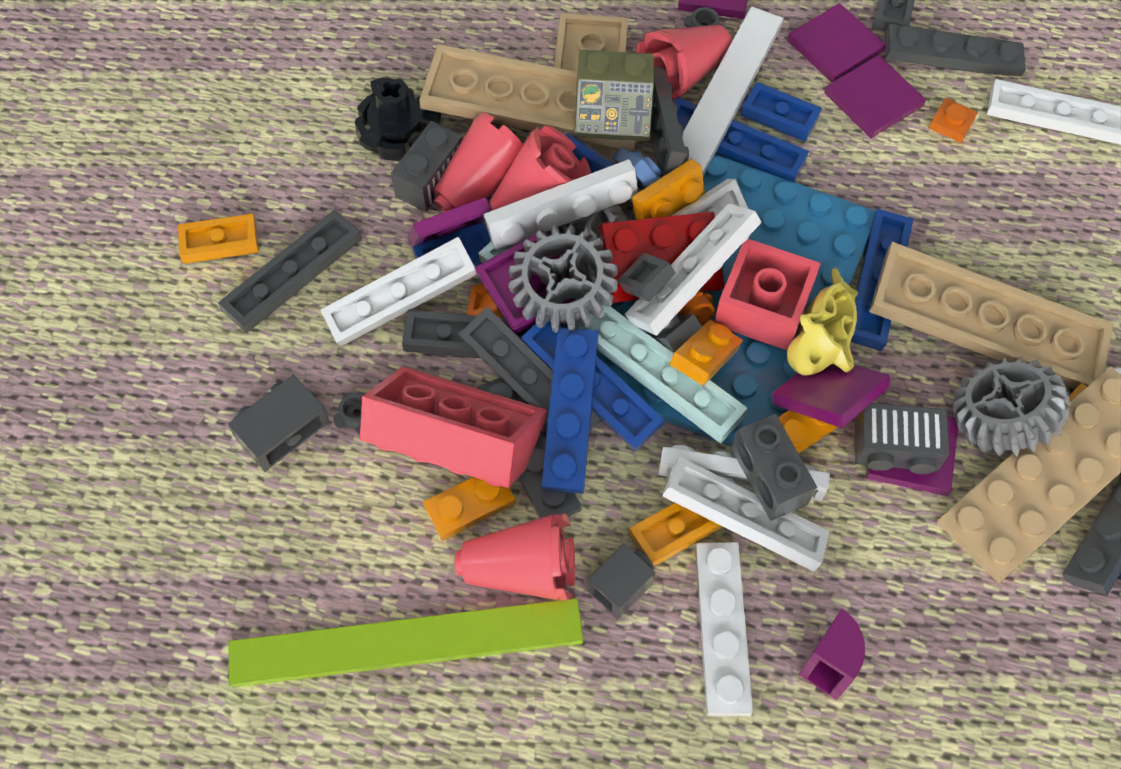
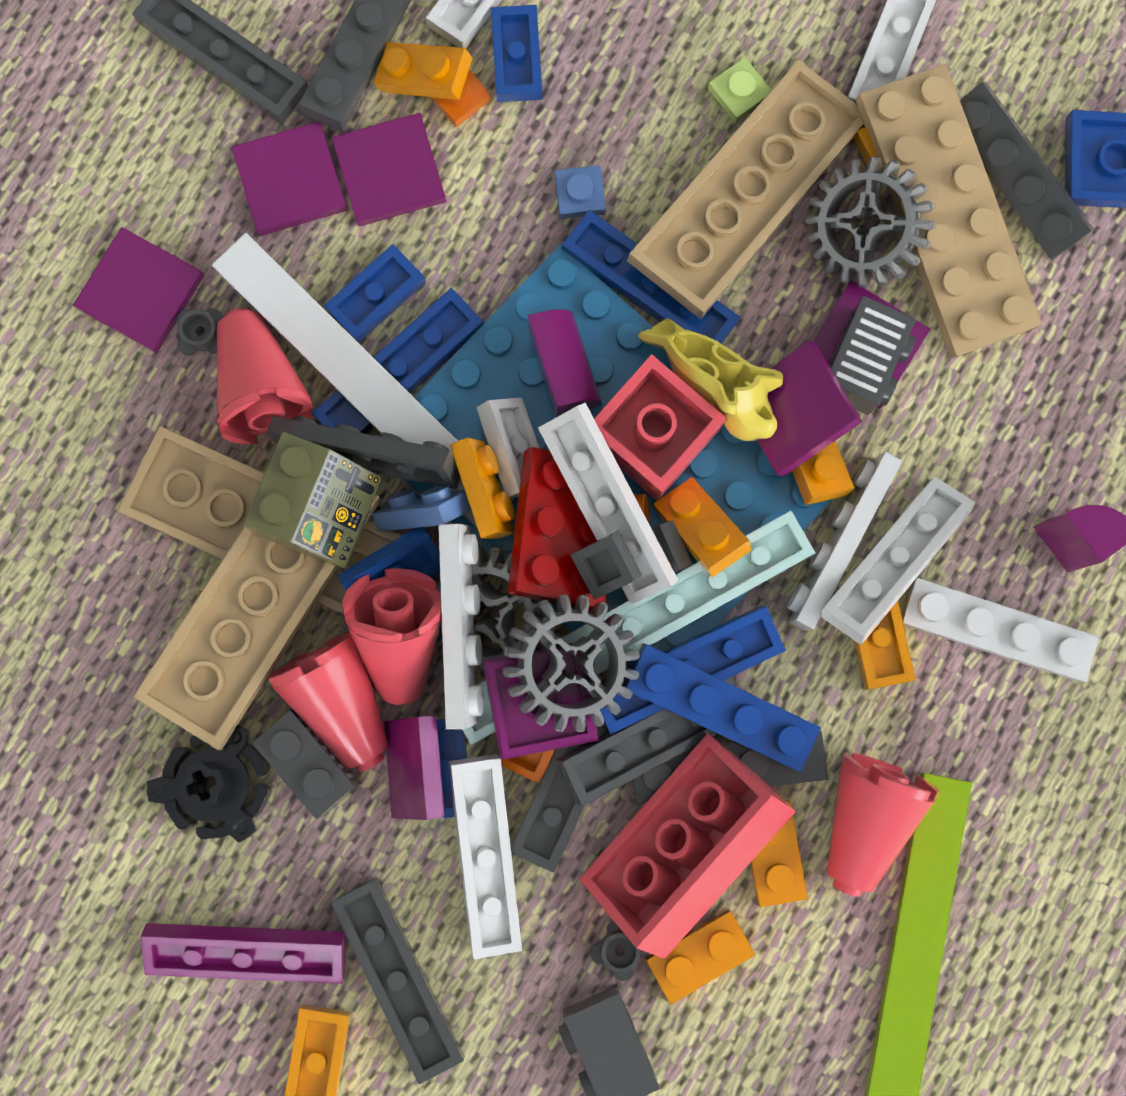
camera: 75 degrees left, 20 degrees up
(283, 173) = (243, 953): none -> magenta plate
(369, 472) = (701, 957): none -> light orange plate
(621, 580) = (924, 719): dark grey brick -> none
(773, 467) = (877, 513): dark grey brick -> none
(793, 220) = (563, 360): none -> magenta brick
(927, 215) = (580, 191): none -> medium blue plate
(956, 88) = (423, 70): none -> light orange plate
(1003, 143) = (516, 53): none -> blue plate
(1068, 292) = (739, 89): none -> yellowish green plate

